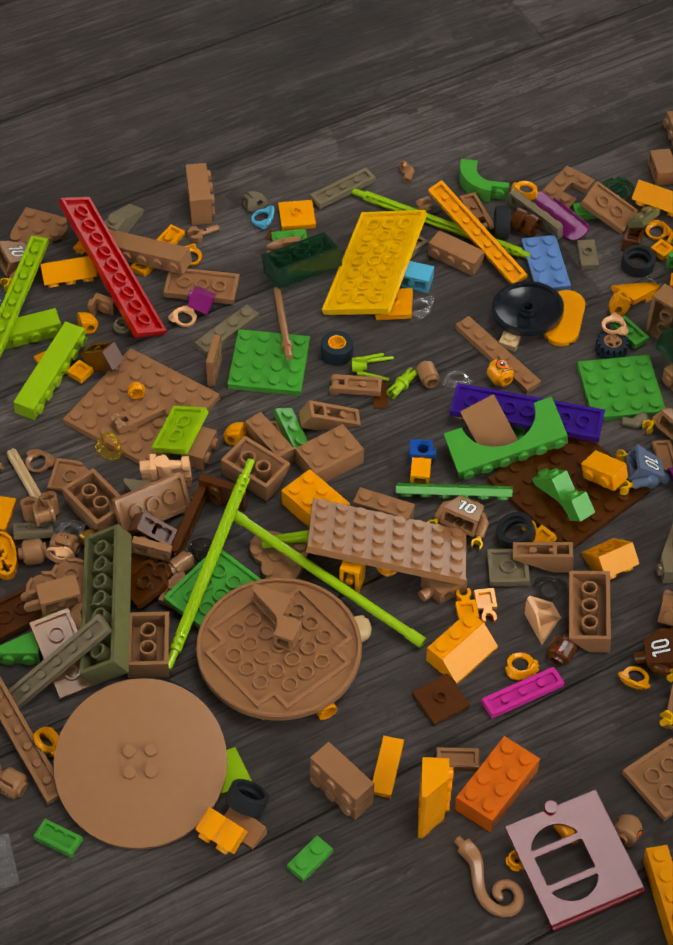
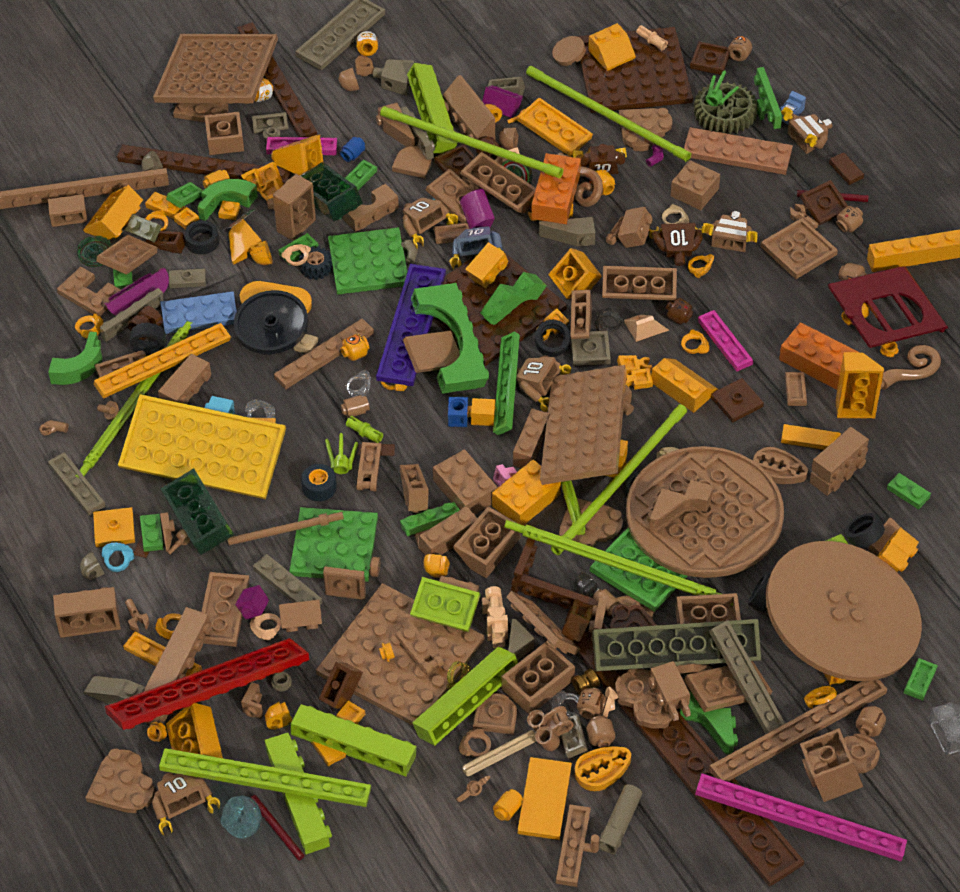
camera: 90 degrees left, 0 degrees up
(83, 447) = (464, 696): none -> lime brick
(186, 333) = (300, 614): none -> medium nougat brick
(237, 388) = (375, 566): none -> medium nougat tile
(339, 485) = (503, 474): none -> bright pink tile
(358, 731) = (779, 457): none -> medium nougat piece

